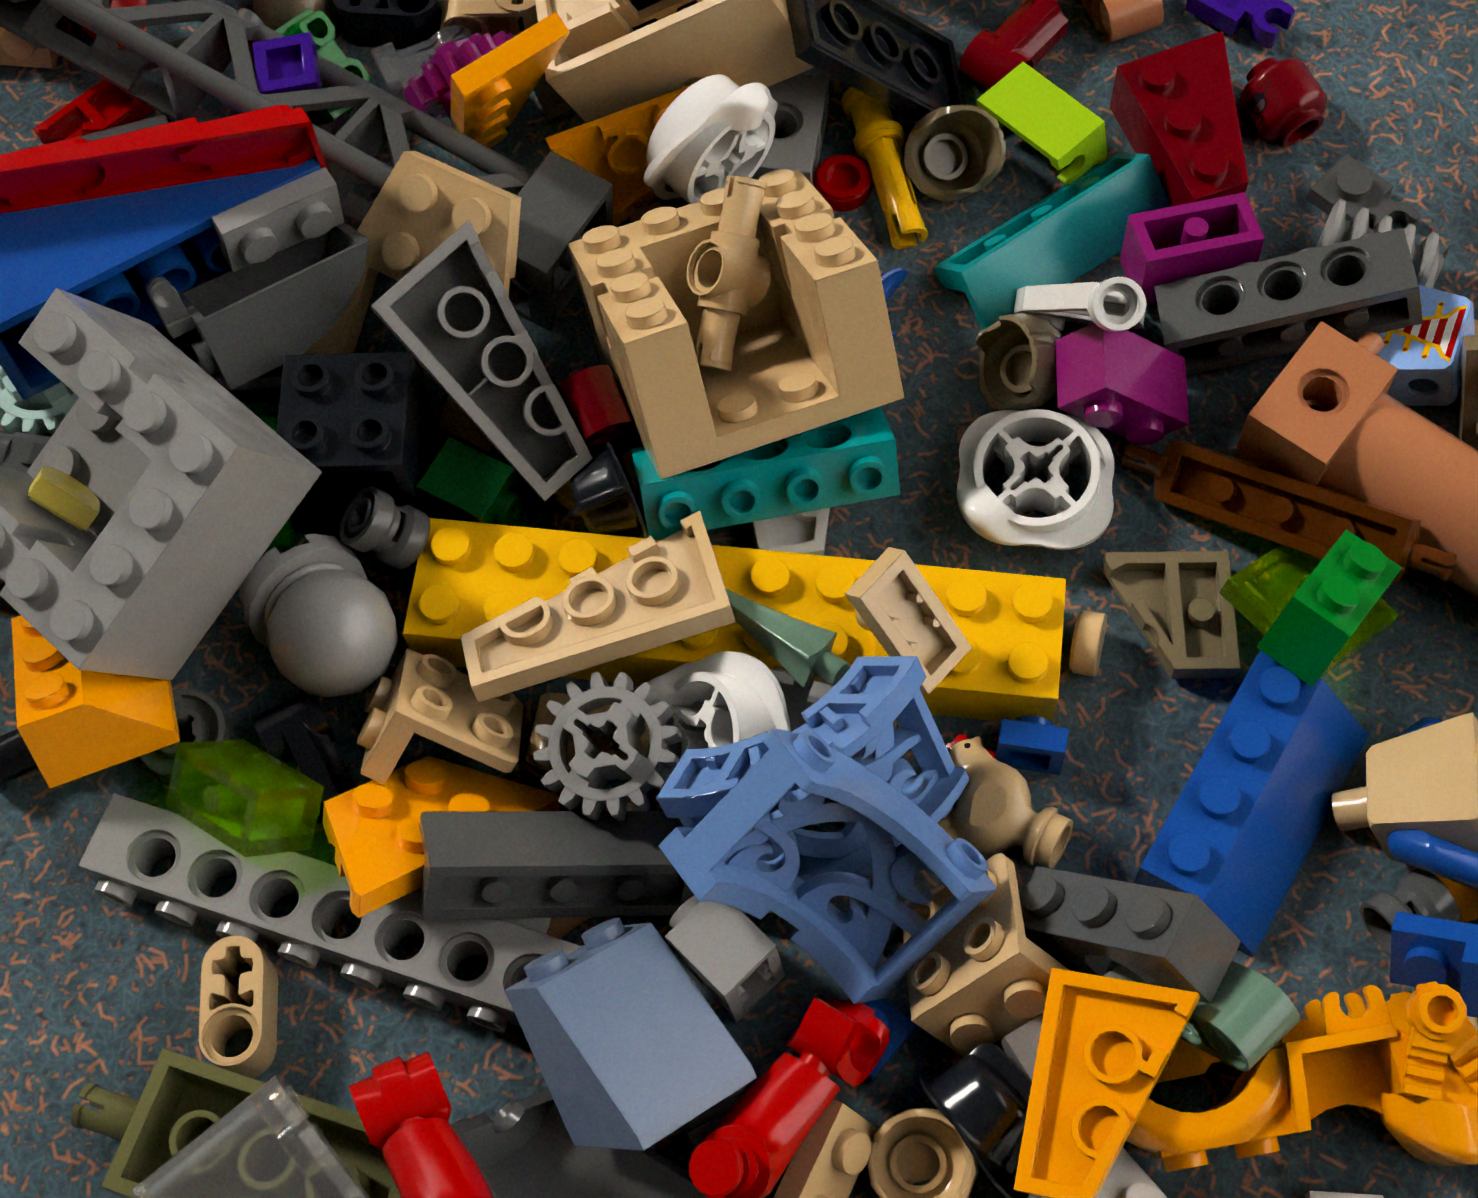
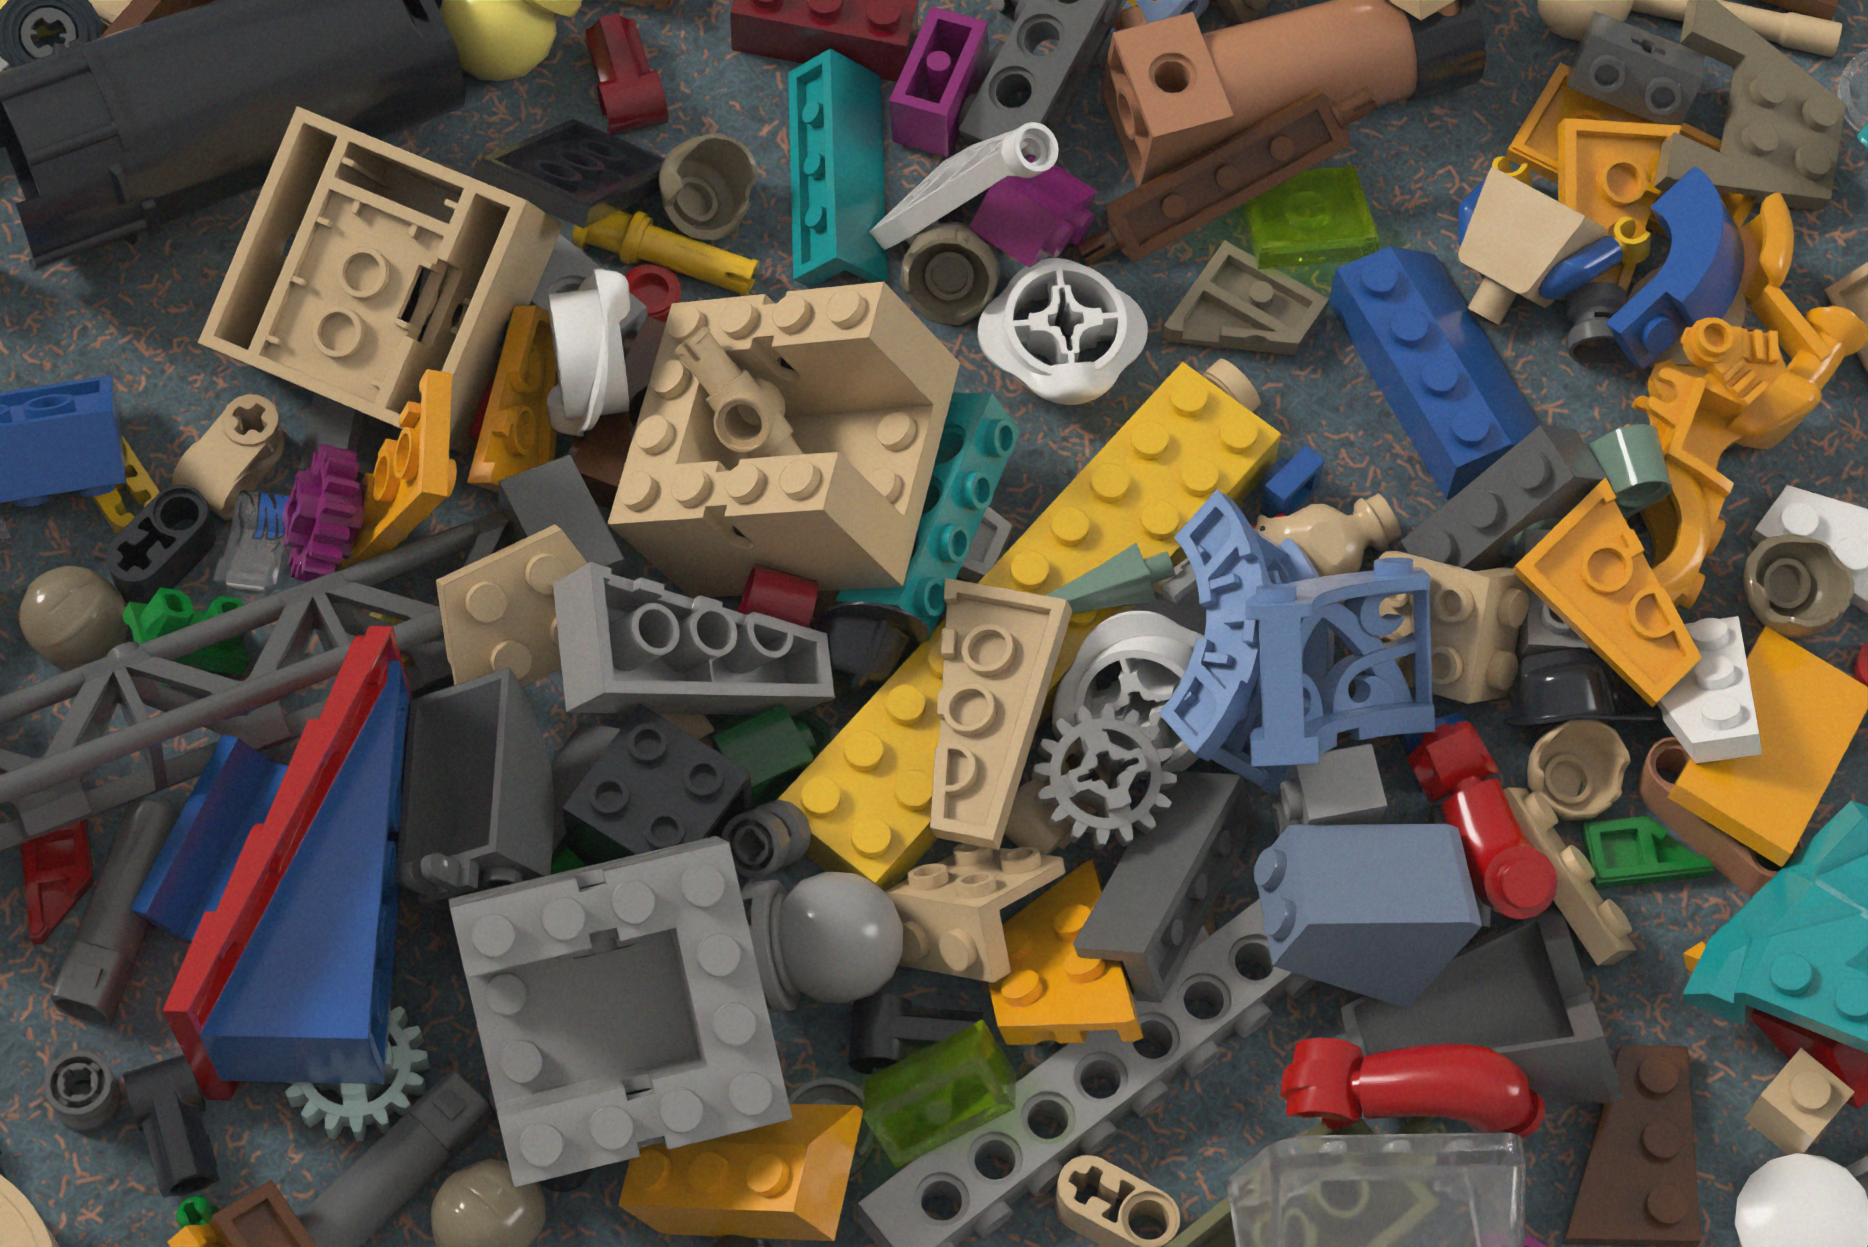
camera: 65 degrees left, 0 degrees up
(64, 497) = (579, 1065): light yellow tile -> none
(278, 219) = (414, 759): light grey plate -> none
(287, 64) = (224, 643): dark purple plate -> none
(907, 616) = (1159, 482): tan tile -> none
(1048, 121) = (727, 99): lime hinge -> none
(1329, 607) = (1345, 198): green brick -> none

